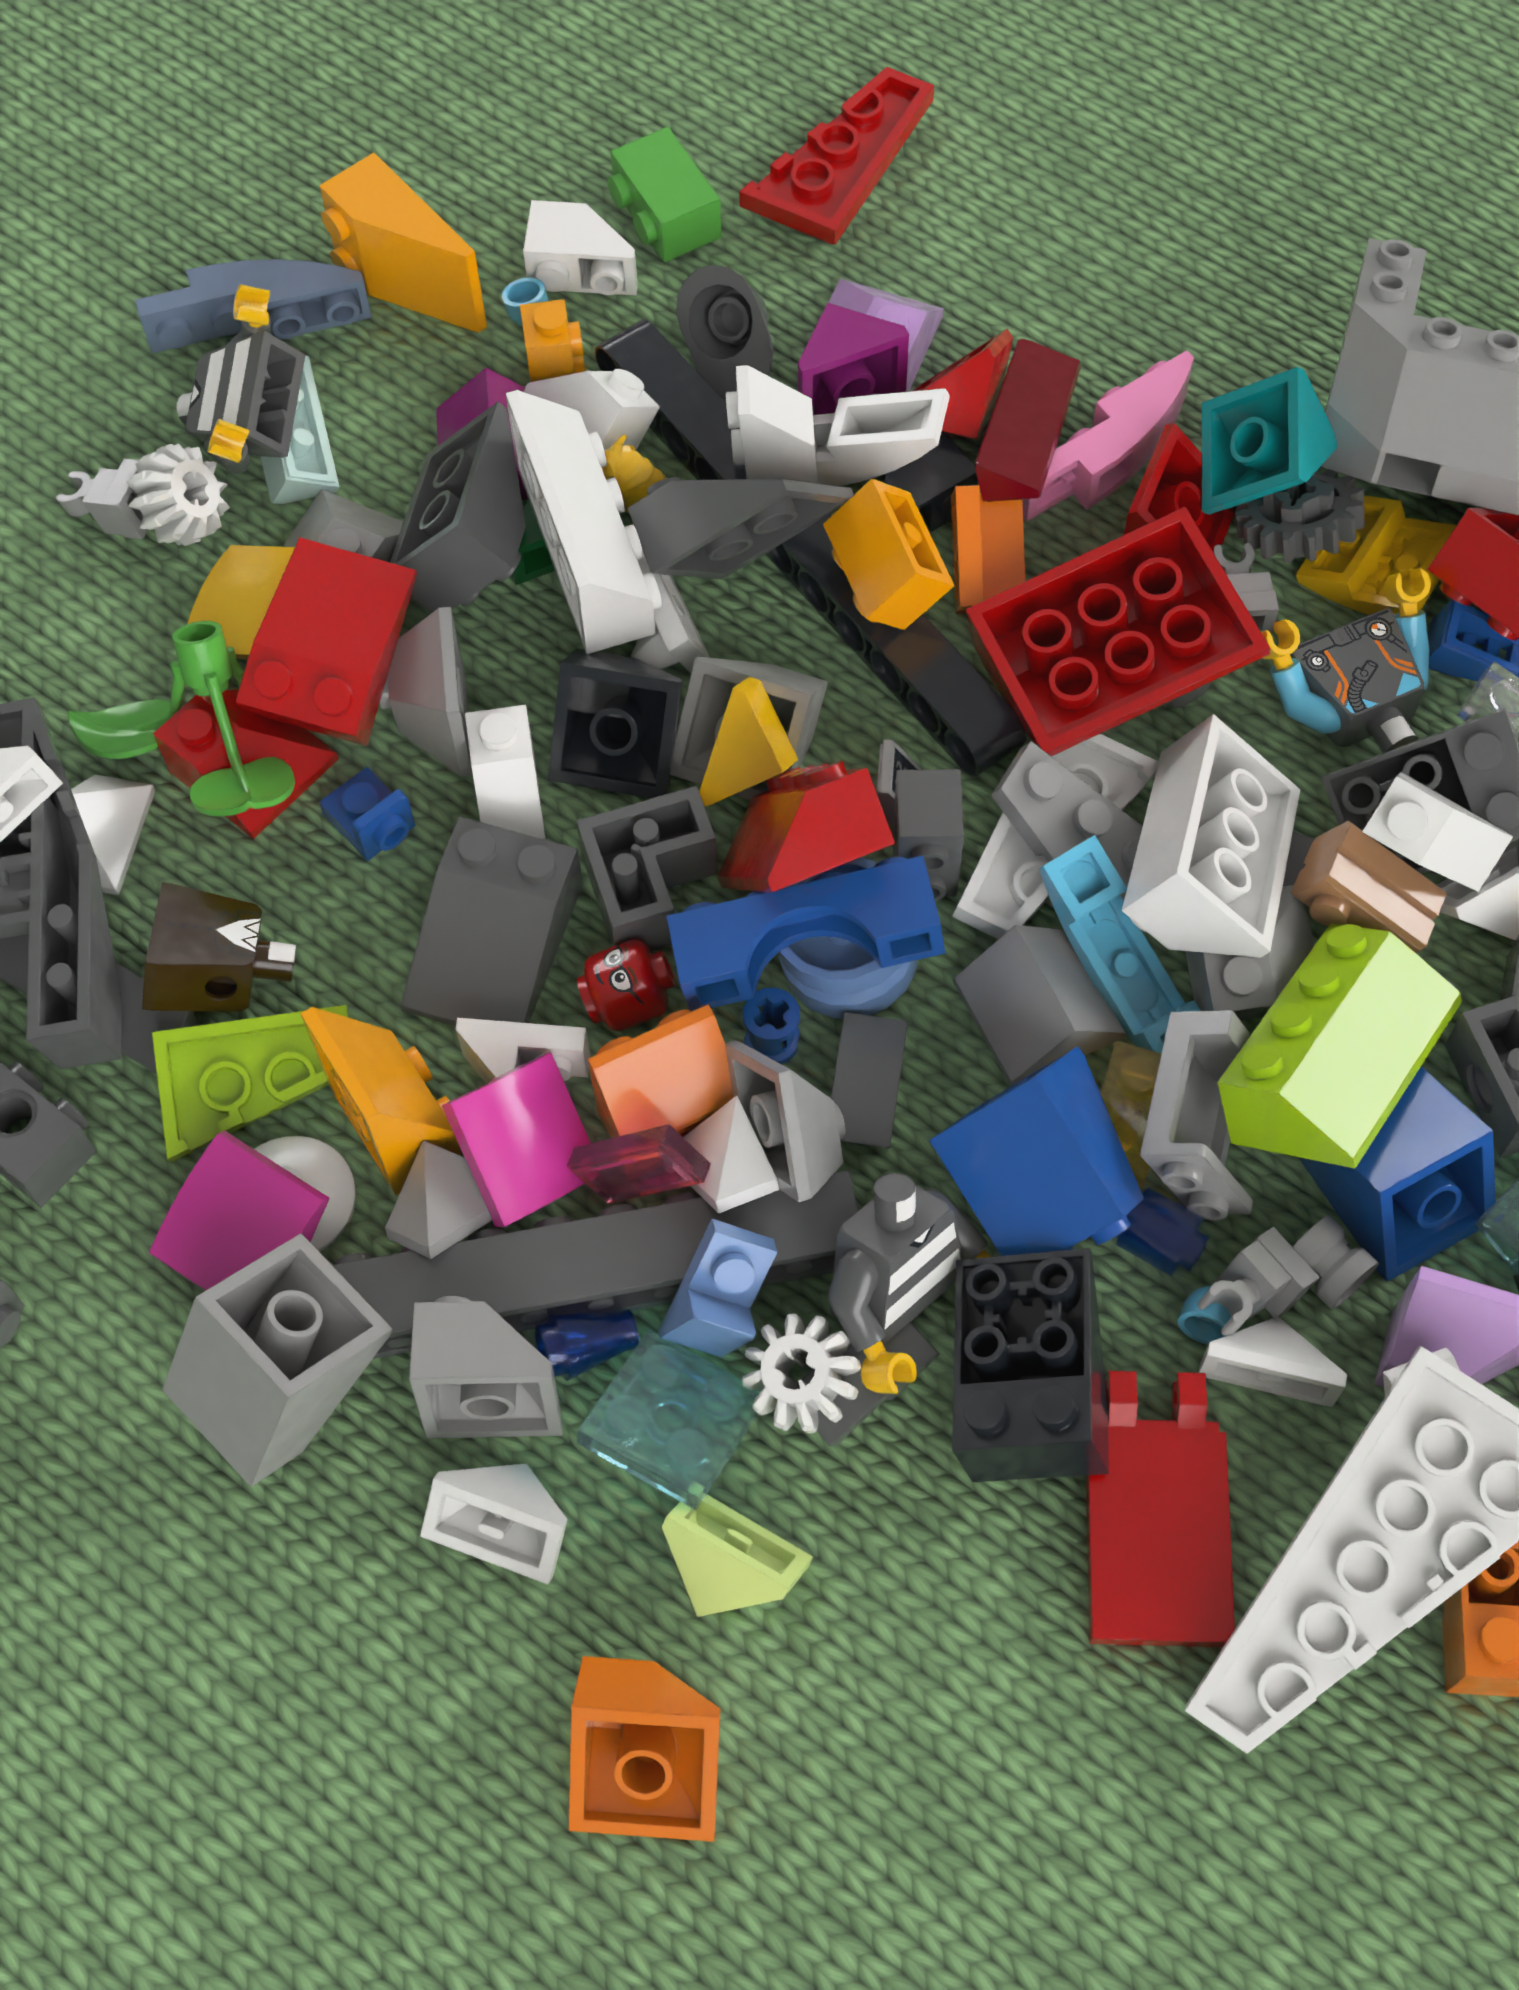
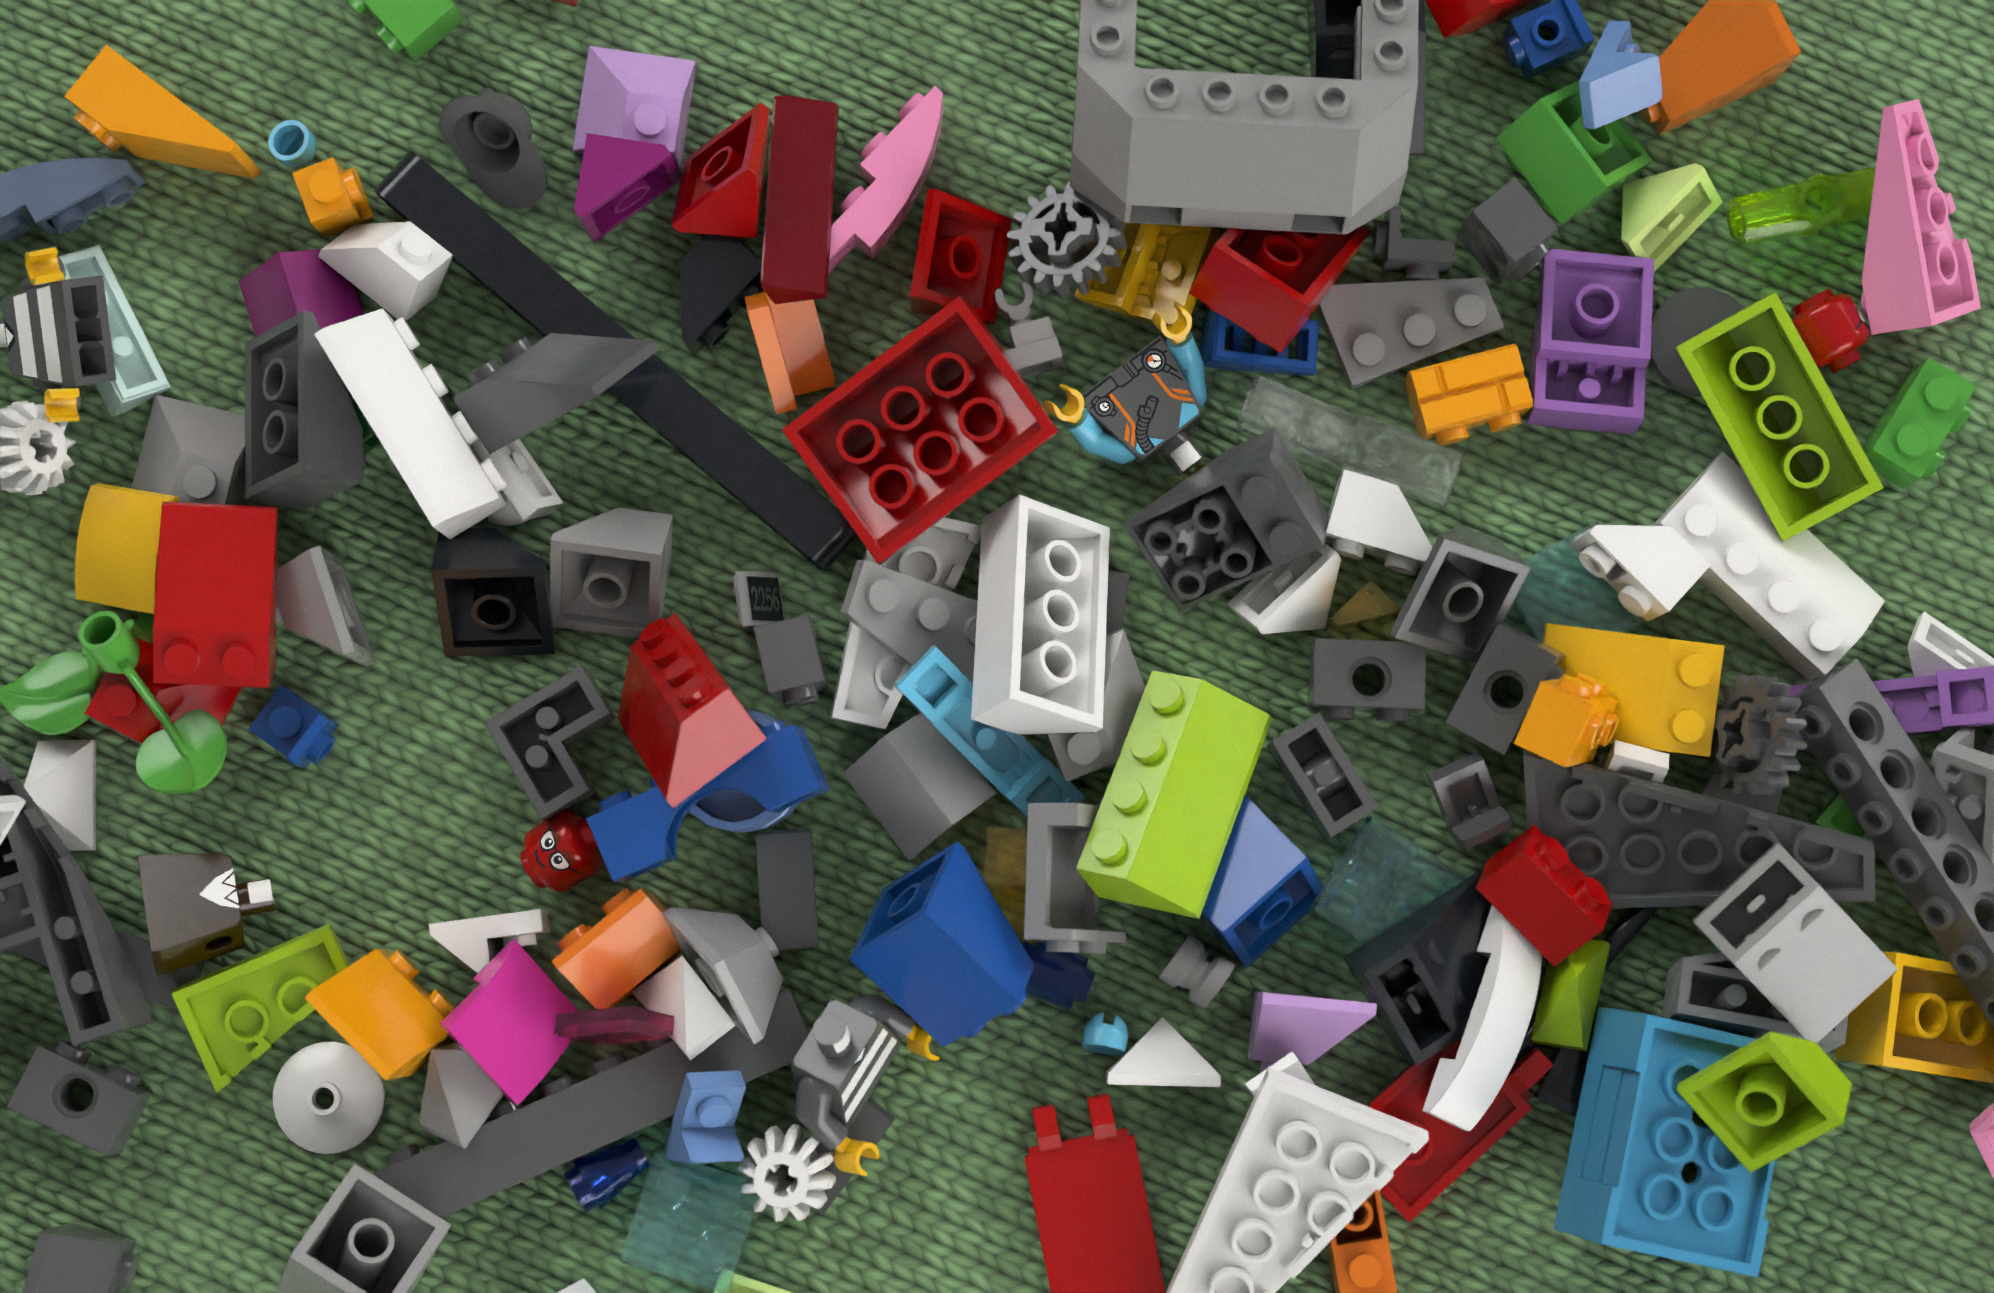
camera: 15 degrees left, 20 degrees up
(234, 1213) = (294, 1141): dark pink slope -> none
(478, 1374) = (520, 1232): light grey slope -> none
(491, 925) = (434, 824): dark grey slope -> none
(505, 769) = (409, 674): white slope -> none
(577, 251) = (324, 76): white slope -> none
(631, 471) = (453, 334): yellow hair -> none
(748, 745) = (620, 611): yellow slope -> none
(774, 429) = (566, 284): white slope -> none
(778, 1011) = (712, 860): blue bush -> none
(877, 434) = (653, 257): white slope -> none
(887, 555) = (700, 395): light orange brick -> none
(1029, 1368) = (966, 1123): black slope -> none
(1261, 1277) = (1140, 999): light grey piece -> none
(1262, 440) = (1020, 194): teal slope -> none
(1366, 885) = (1180, 632): medium nougat brick -> none
(1437, 833) = (1225, 573): white slope -> none

